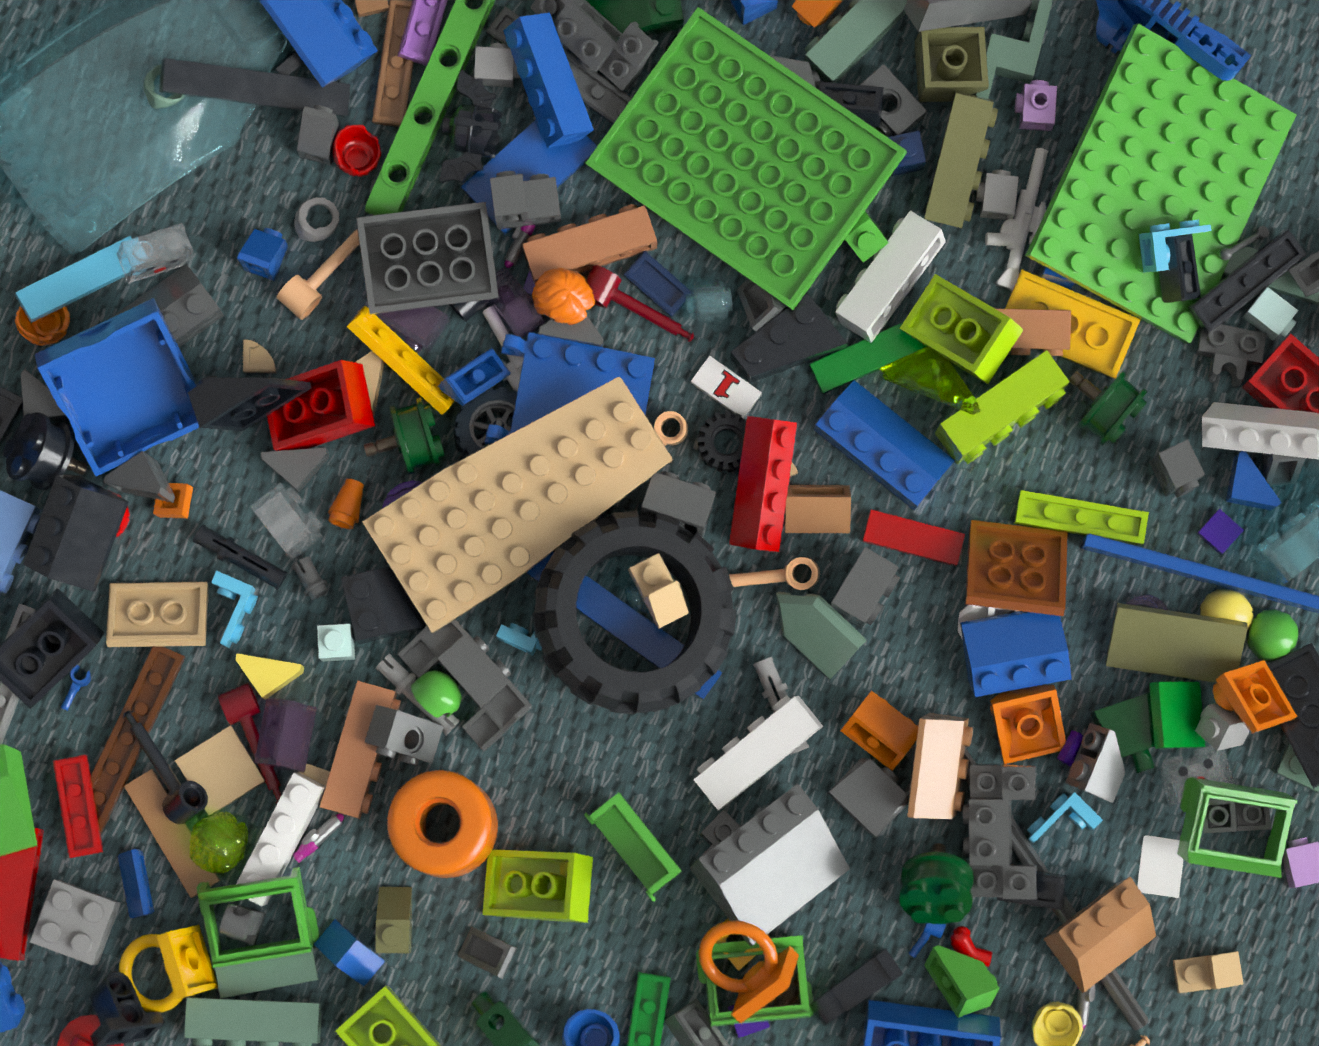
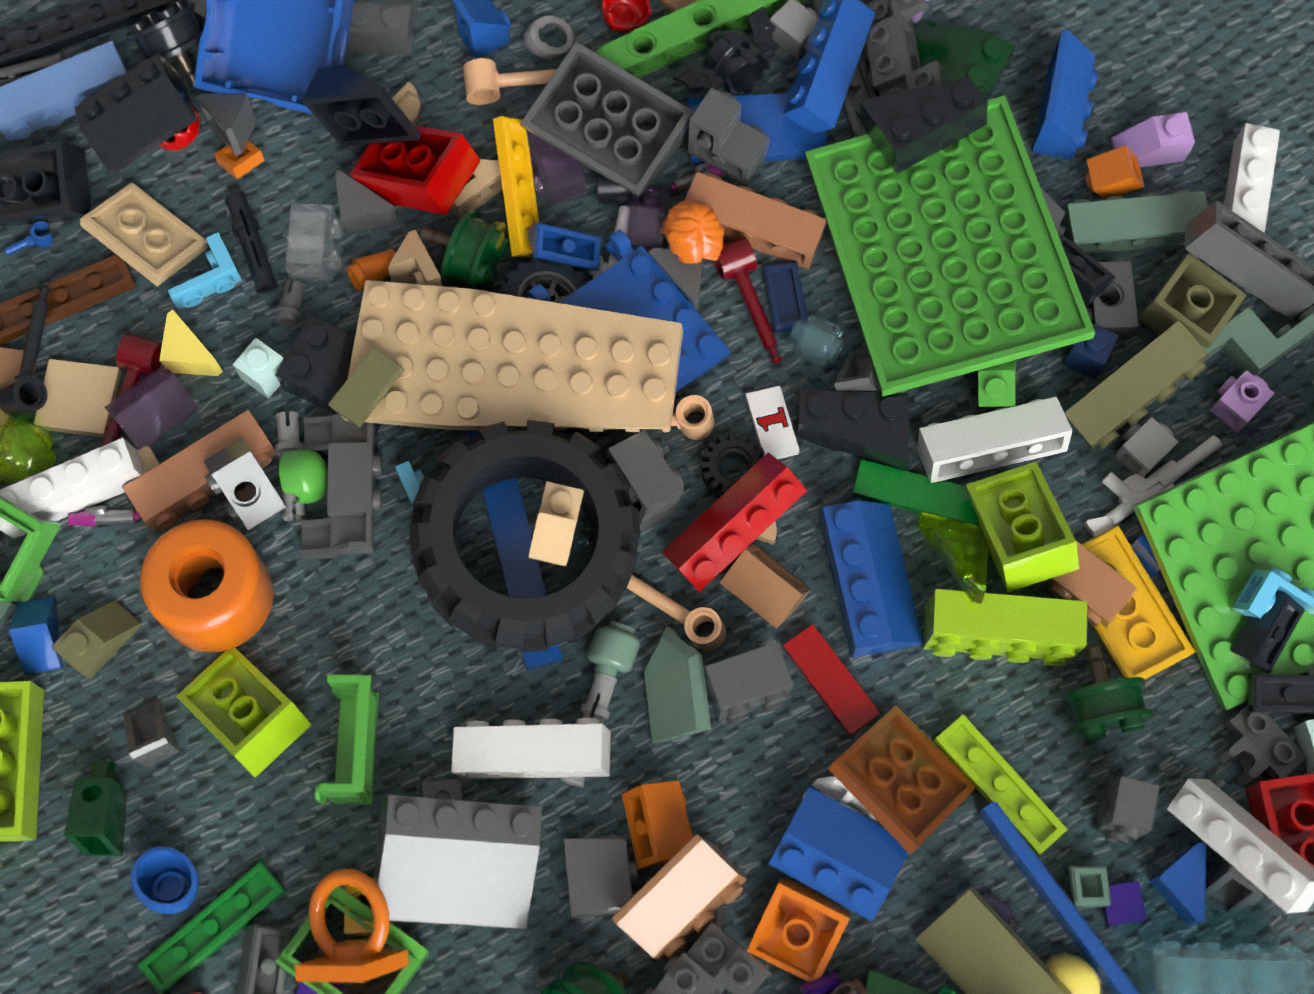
camera: 40 degrees right, 10 degrees down
(379, 477) = (413, 263): none -> tan slope
(436, 599) = (366, 387): none -> olive tile
(657, 78) = (923, 120): none -> black wedge
(753, 638) = (613, 648): none -> sand green head
(1191, 539) = (1089, 886): none -> sand green slope

